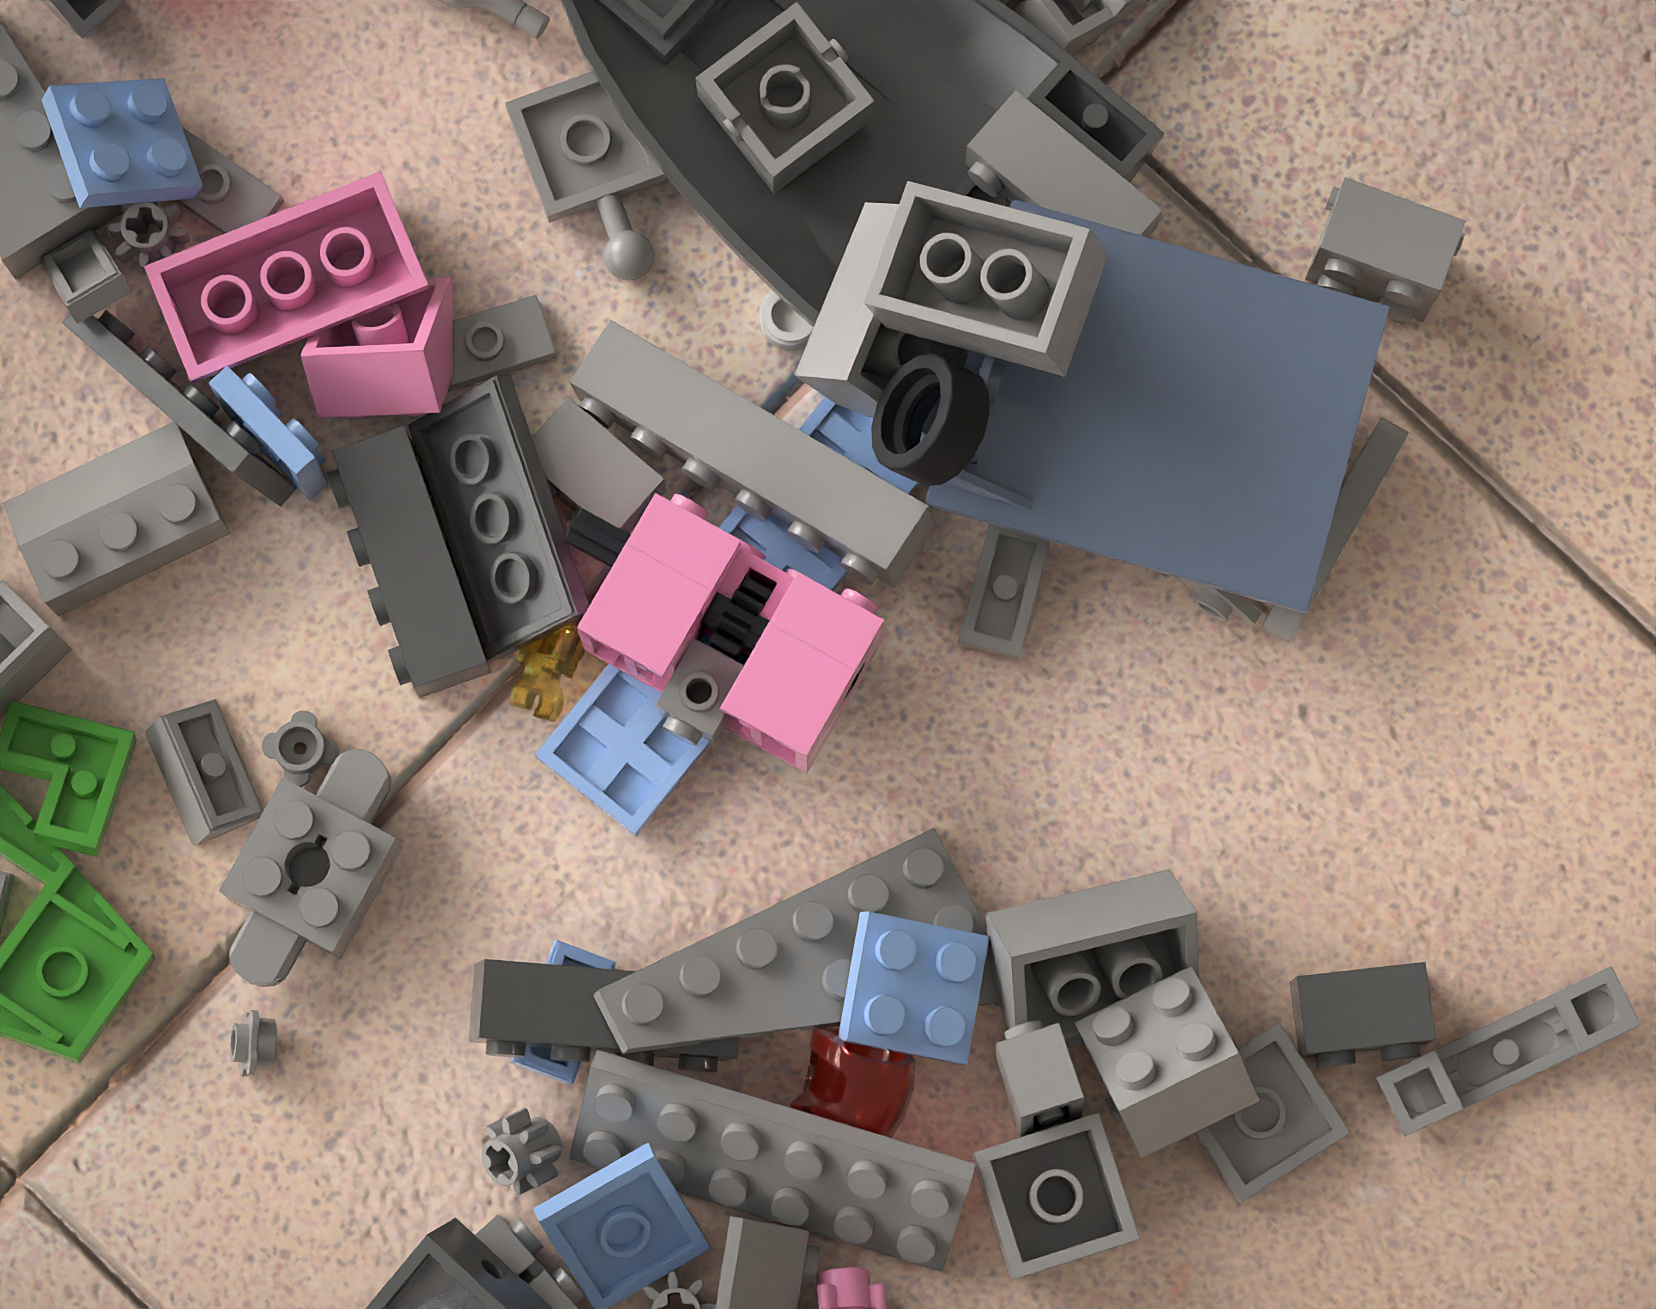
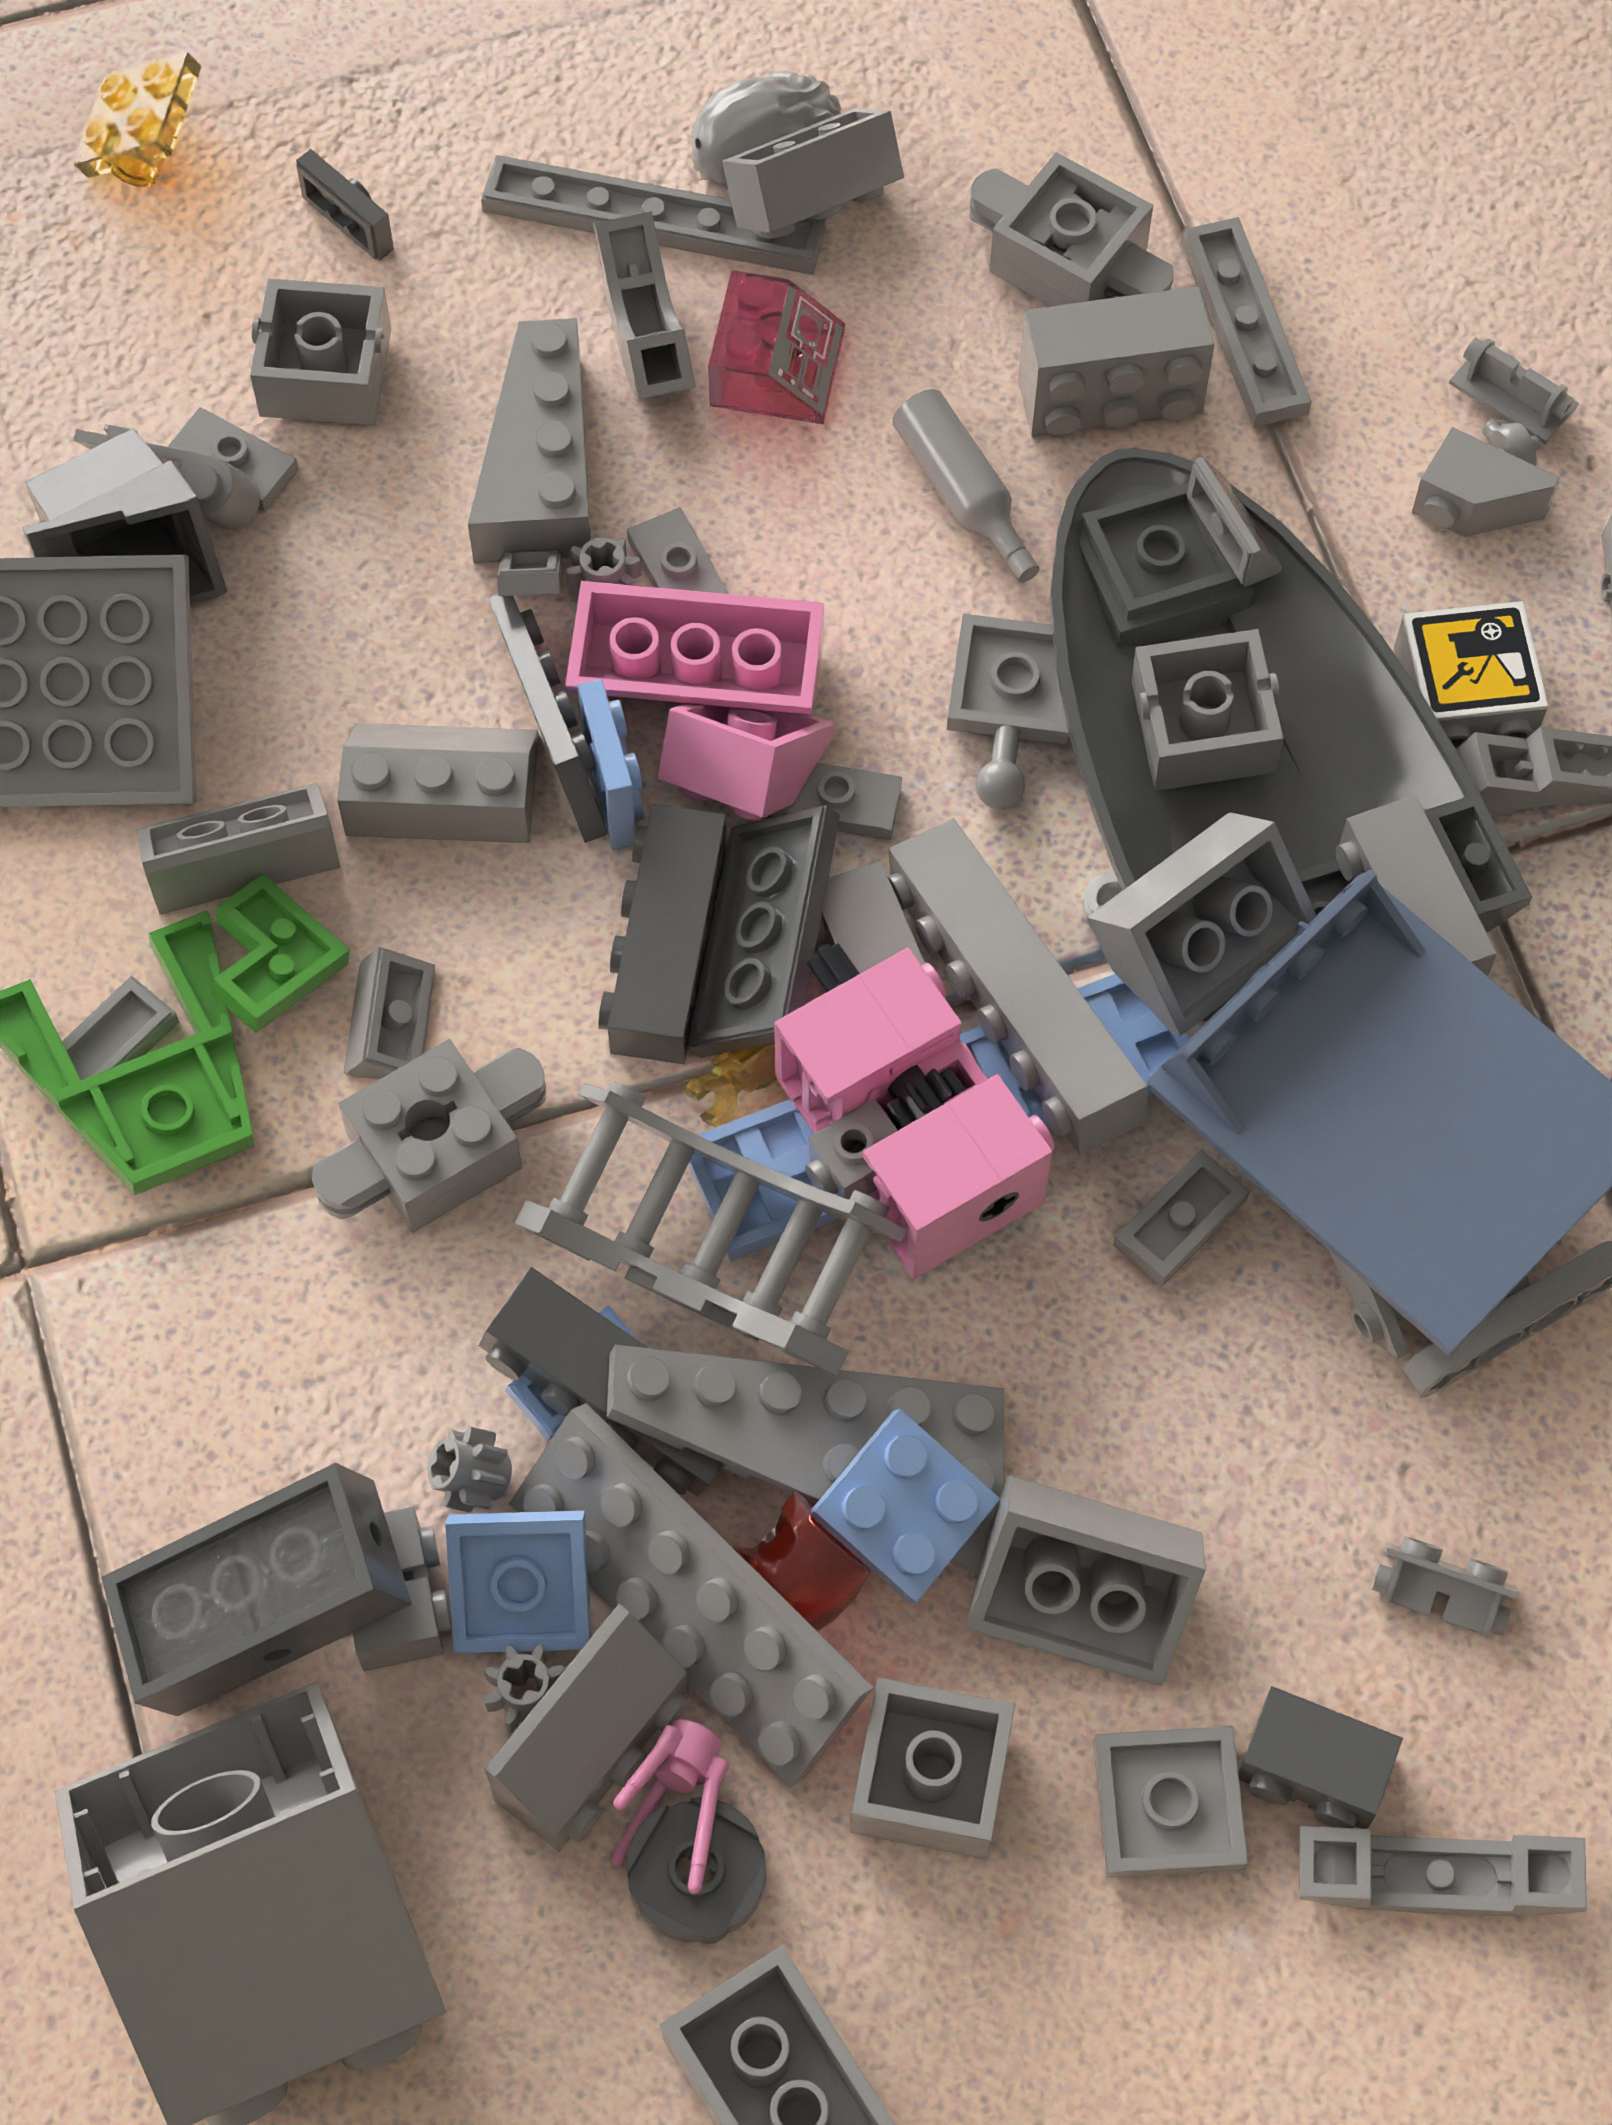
camera: 30 degrees right, 15 degrees down
(121, 142) = (622, 485): light blue plate -> none
(253, 1043) = (292, 1256): light grey plate -> none
(300, 730) = (481, 1021): light grey plate -> none
(621, 883) = (696, 1283): none -> light grey fence
(955, 431) = (1187, 998): black tyre -> none
(986, 278) = (1302, 893): light grey brick -> none
(1038, 1077) = (977, 1640): light grey slope -> none
(1167, 1062) = (1105, 1696): light grey brick -> none
(1414, 793) = (1472, 1591): none -> light grey hinge

